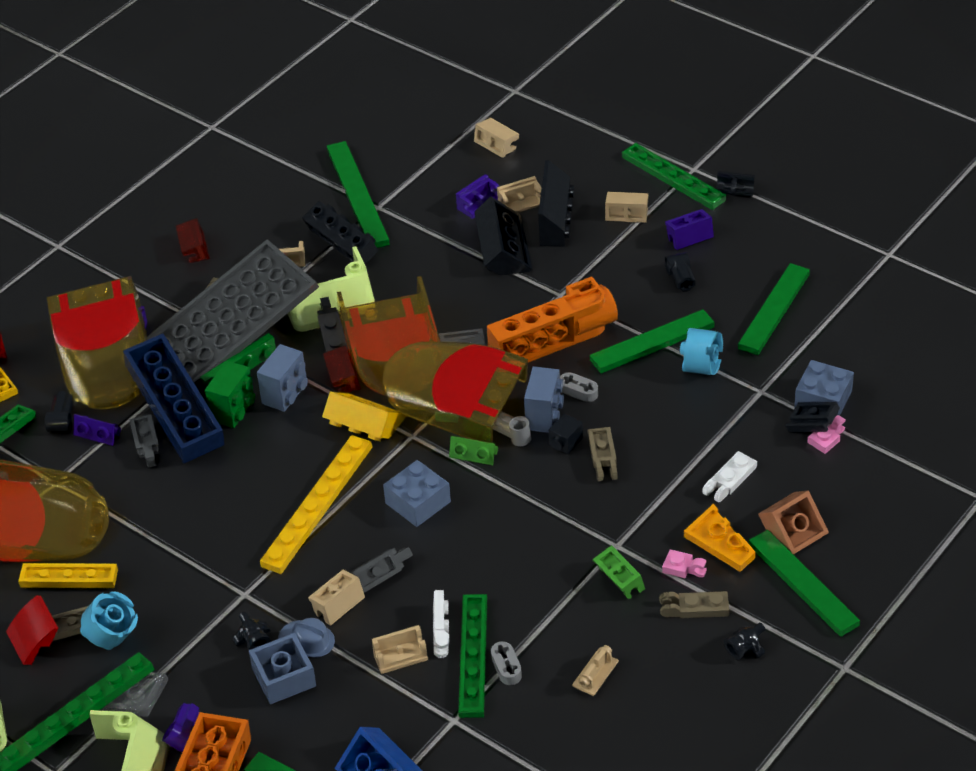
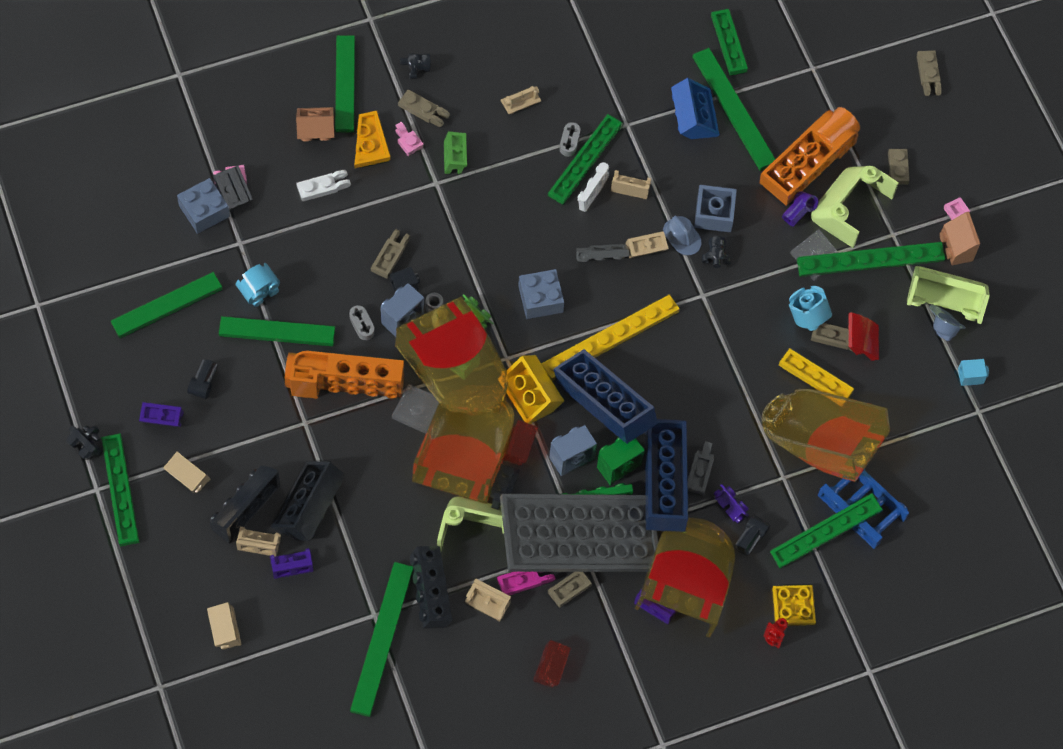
camera: 155 degrees left, 20 degrees up
(276, 416) = (605, 396): none -> dark blue brick

